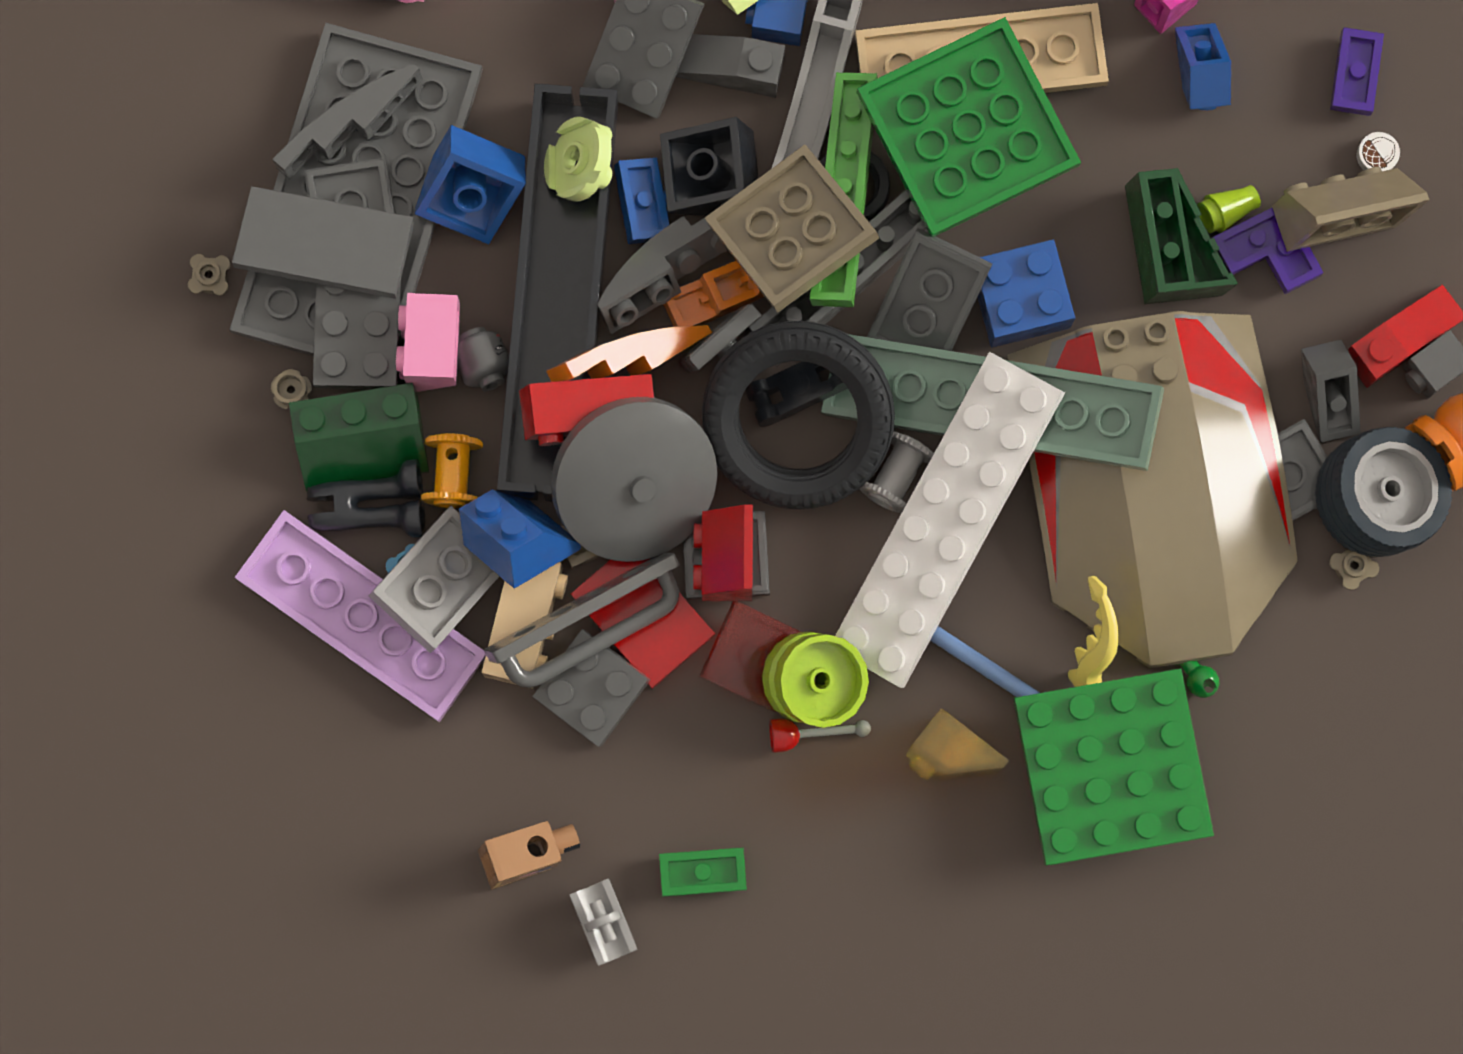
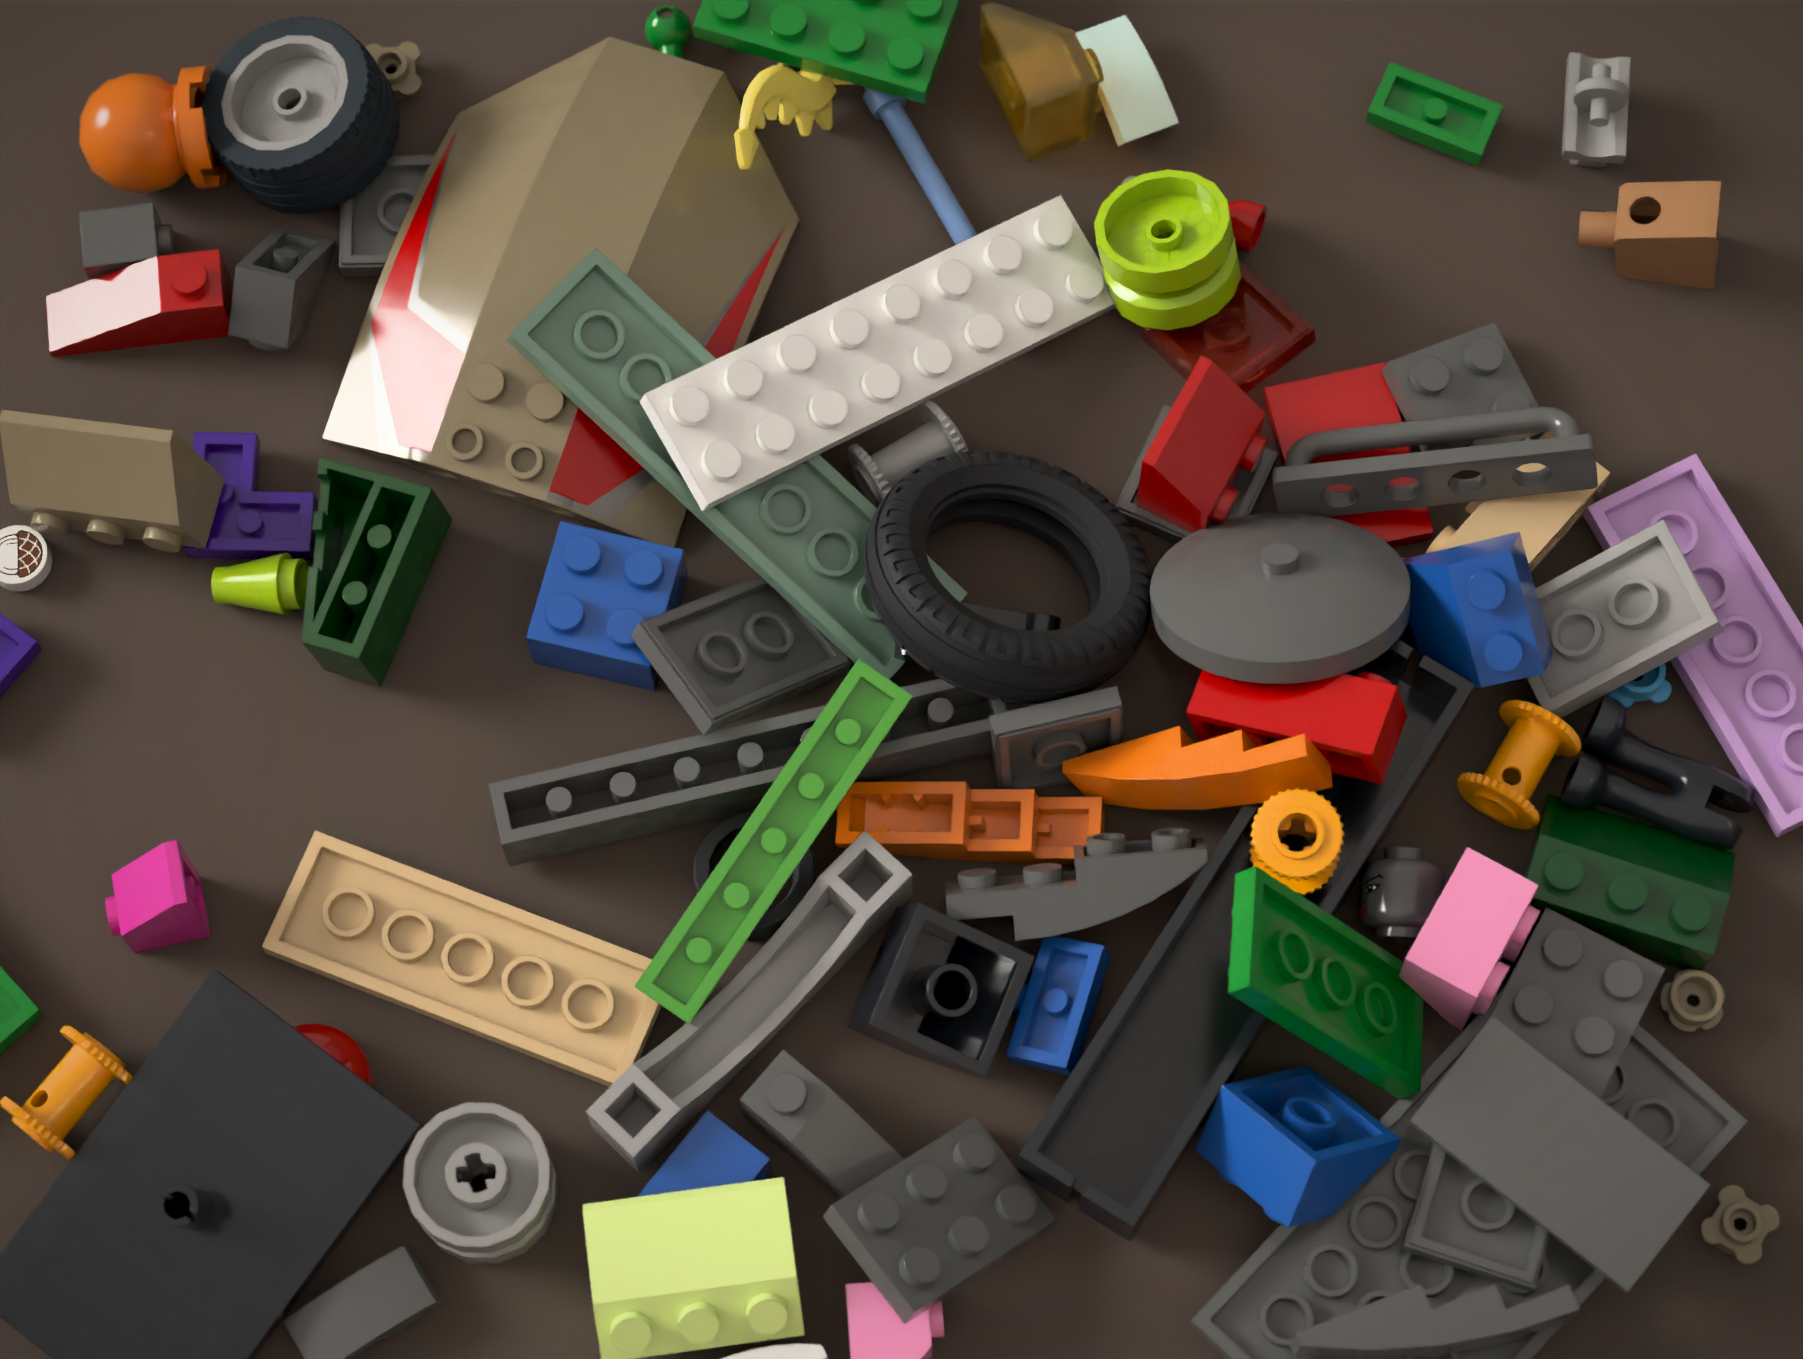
camera: 150 degrees left, 10 degrees down
(496, 258) = (1324, 983): none -> green plate
(548, 316) = (1303, 815): none -> light orange hose
(591, 146) = (1096, 1078): yellowish green plate -> none
(791, 228) = (883, 805): dark tan plate -> none
(905, 793) = (1131, 86): none -> light aqua slope
(968, 127) = (554, 829): green plate -> none
(1203, 66) = (172, 782): blue slope -> none

